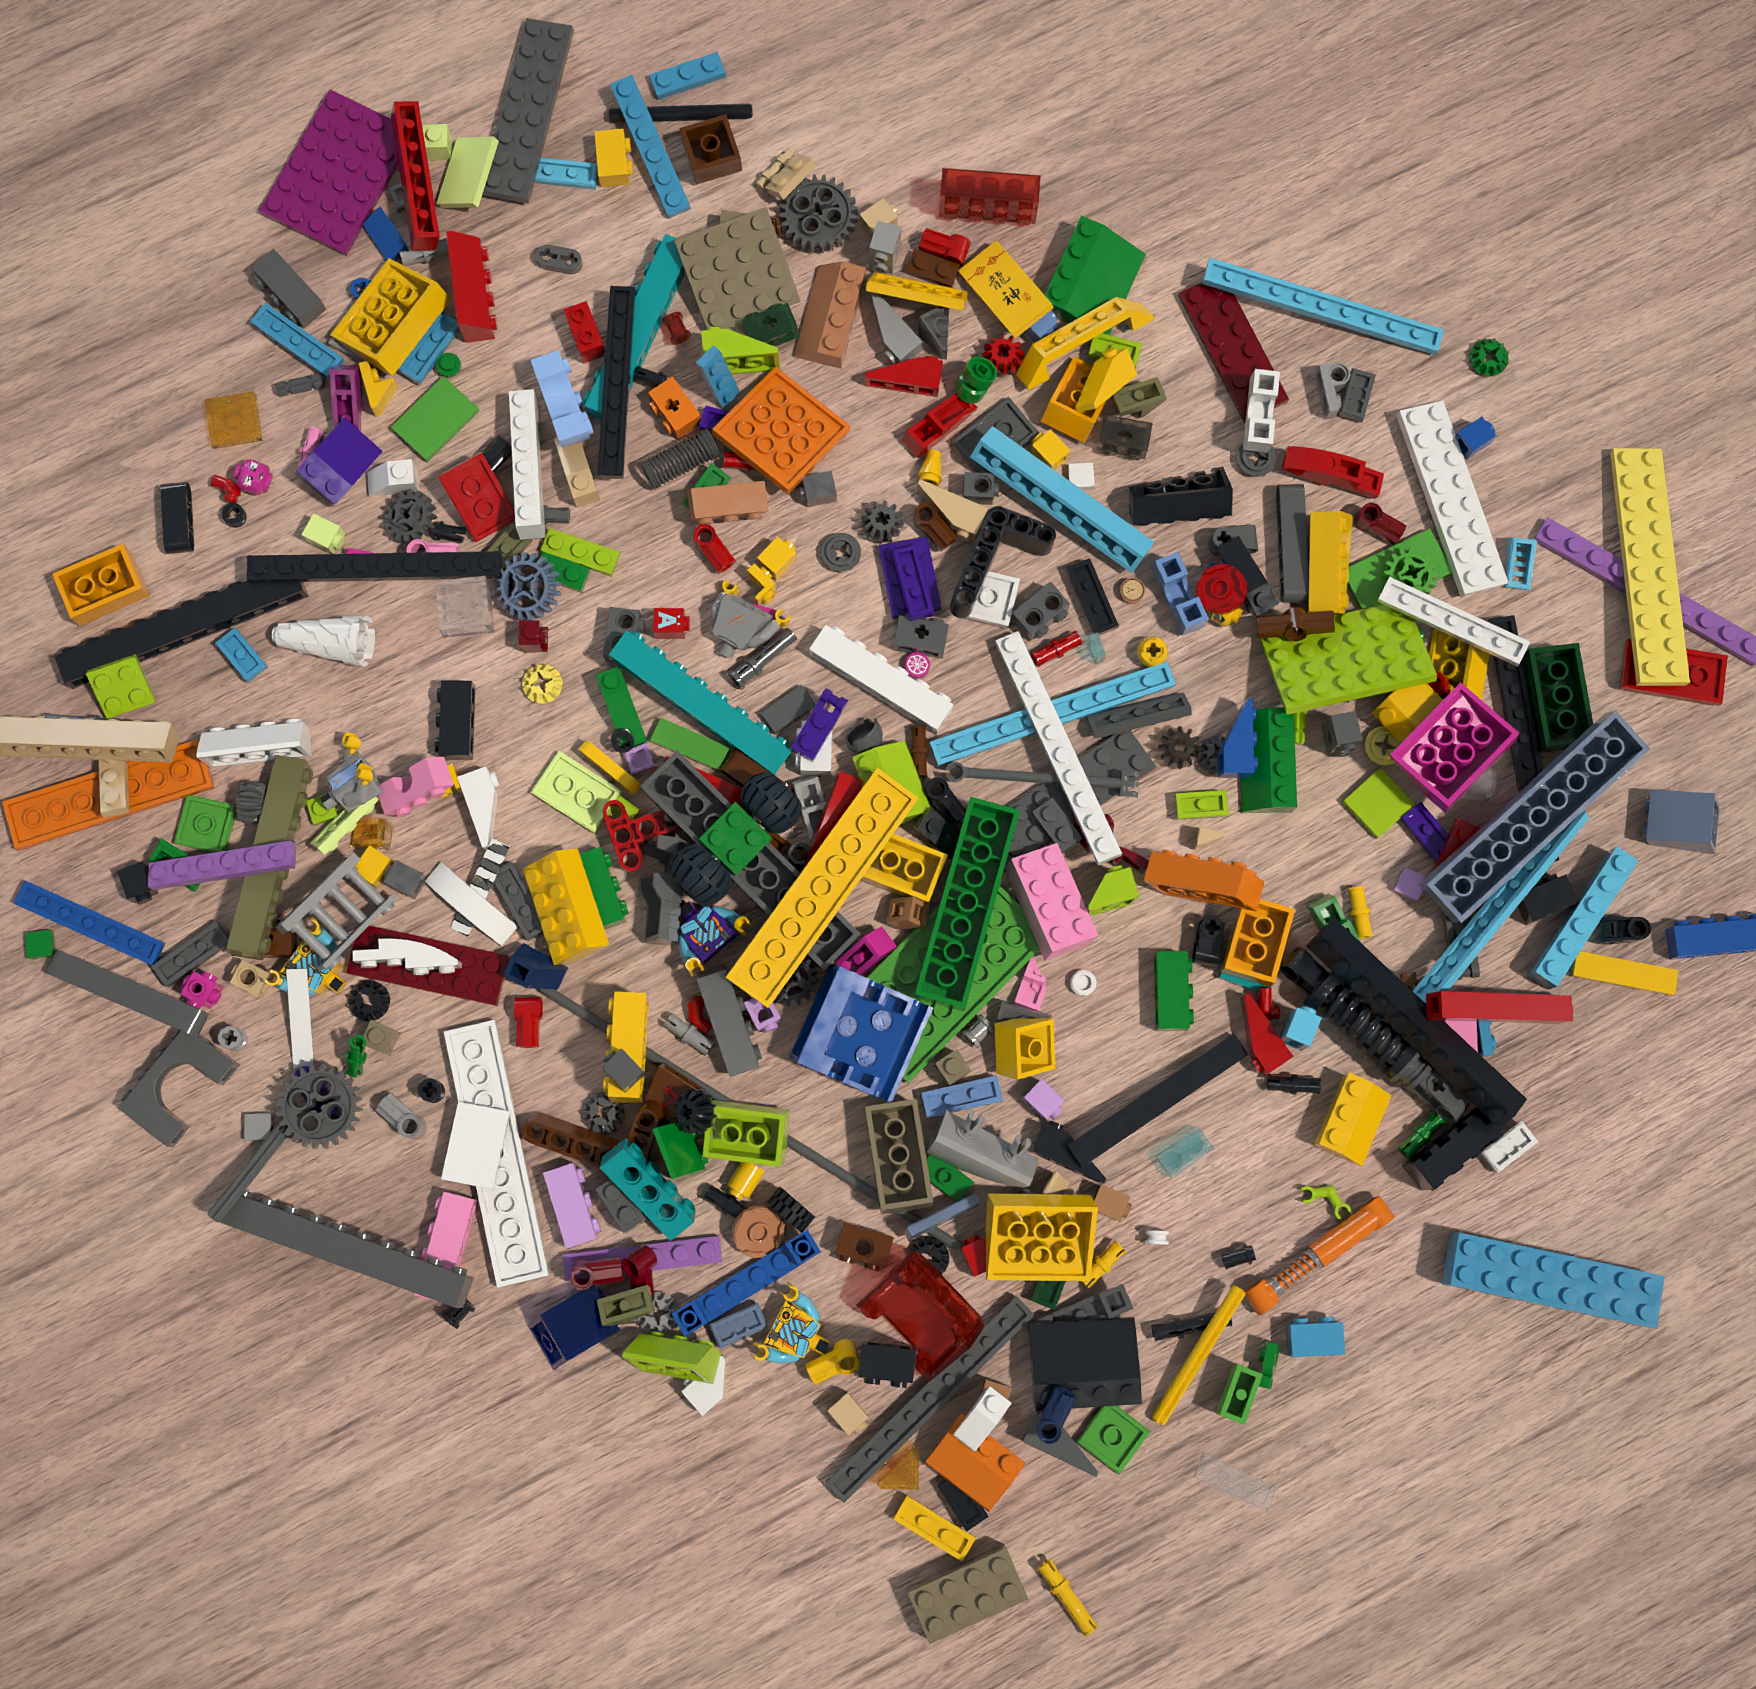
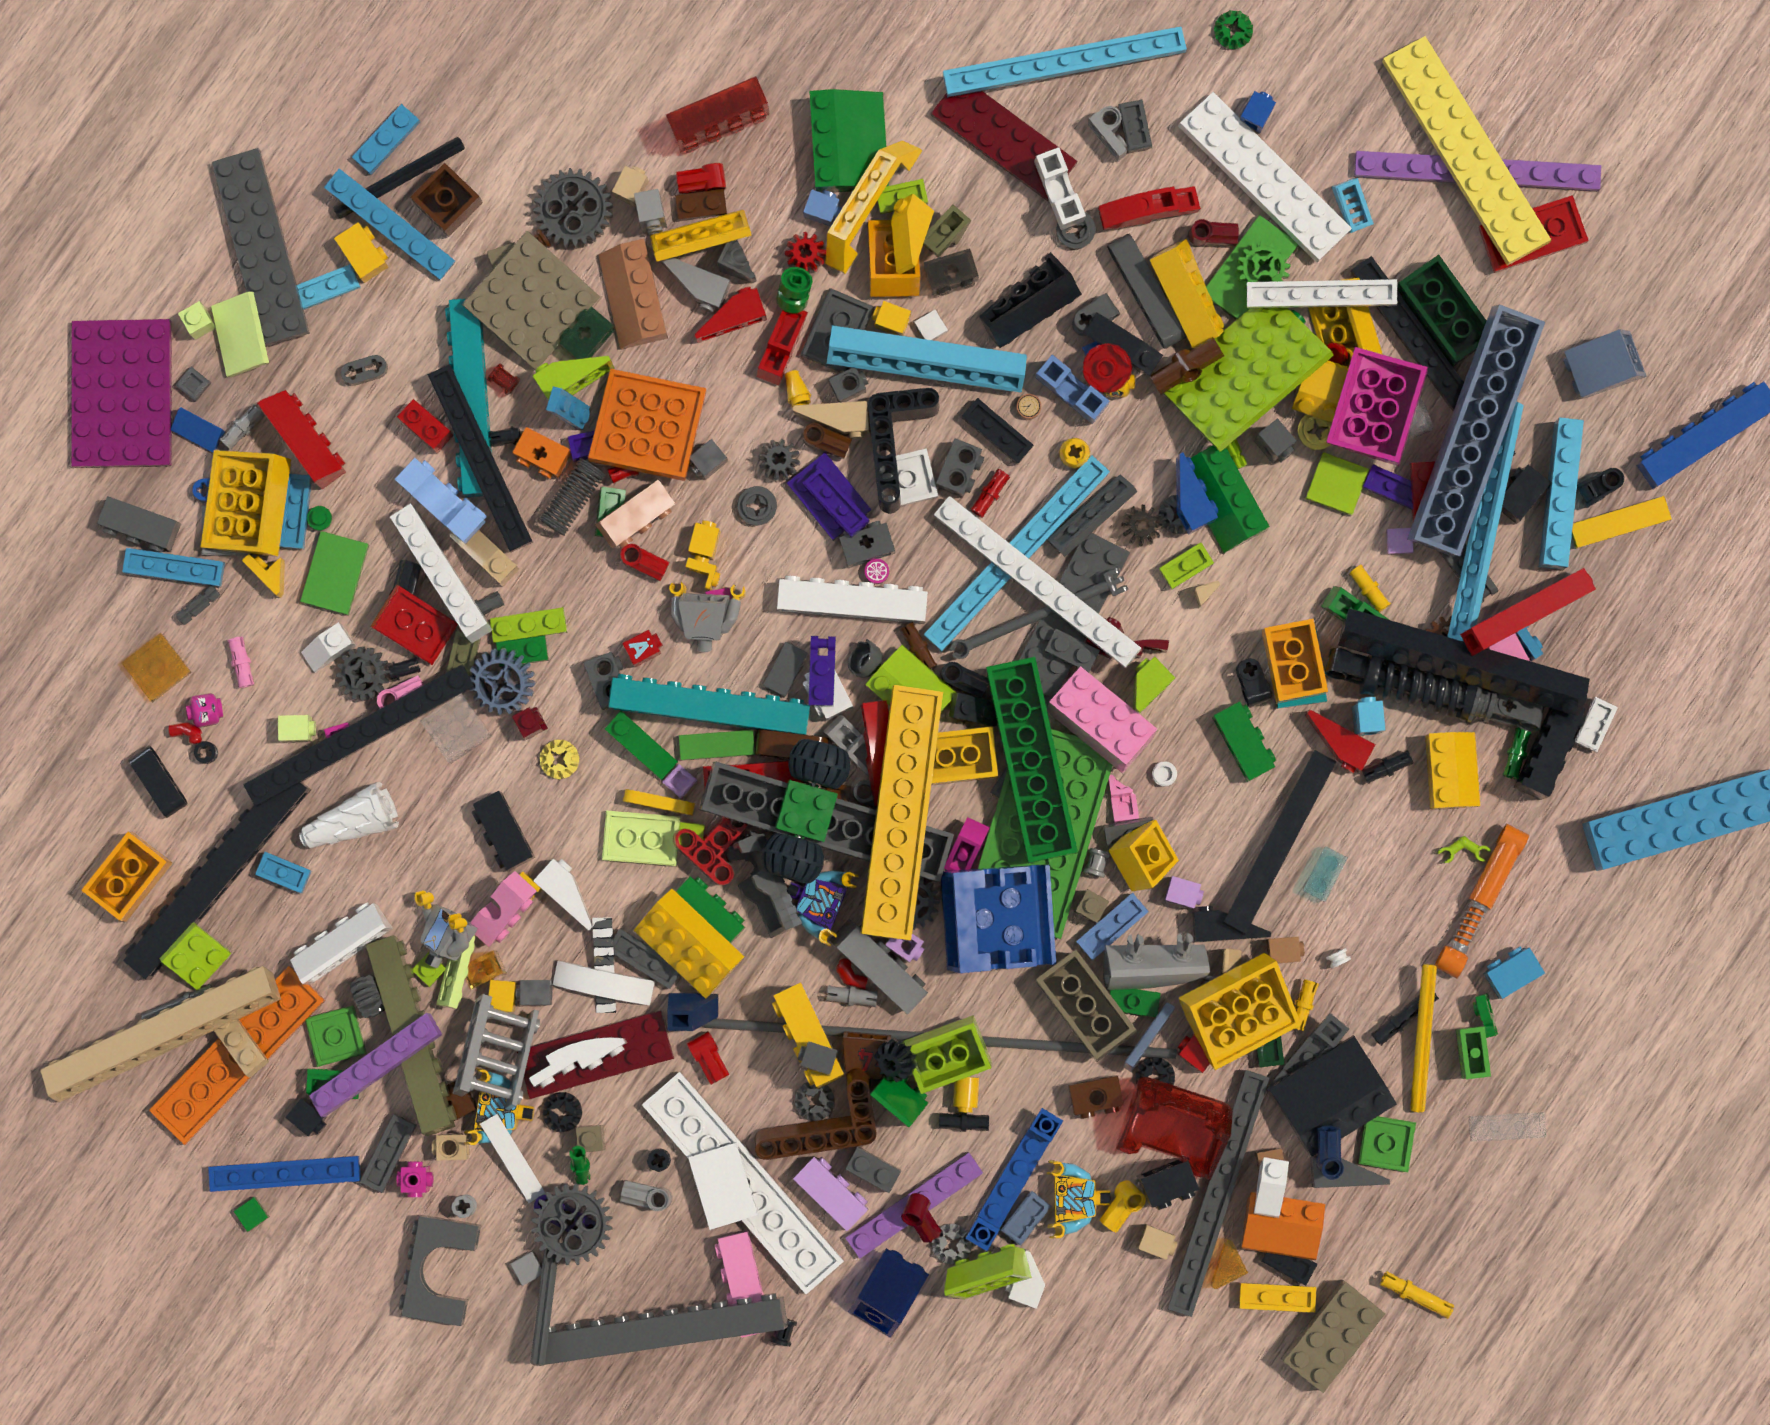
camera: 20 degrees left, 5 degrees up
(127, 993) = (353, 1216): dark grey beam -> none
(338, 461) = (273, 657): dark purple slope -> none
(346, 394) = (250, 601): magenta slope -> none
(415, 175) = (198, 364): red brick -> none
(600, 1272) = (886, 1235): dark red piece -> none
(622, 731) = (650, 770): black bush -> none
(626, 1306) = (924, 1252): olive slope -> none
(668, 1221) = (921, 1162): teal brick -> none
(753, 665) = (735, 646): dark grey pin -> none
(757, 1231) = (1000, 1131): nougat tile -> none
(785, 174) = (530, 188): tan plate -> none
(790, 1209) = (1018, 1098): black tyre -> none
(908, 913) = (984, 794): medium nougat brick -> none
(1005, 289) = (777, 192): yellow tile -> none
(1096, 648) = (1024, 475): clear light blue tile -> none
(1204, 880) = (1223, 634): orange brick -> none
(1238, 1256) = (1415, 937): black pin -> none
(1265, 1003) = (1328, 710): red arm -> none

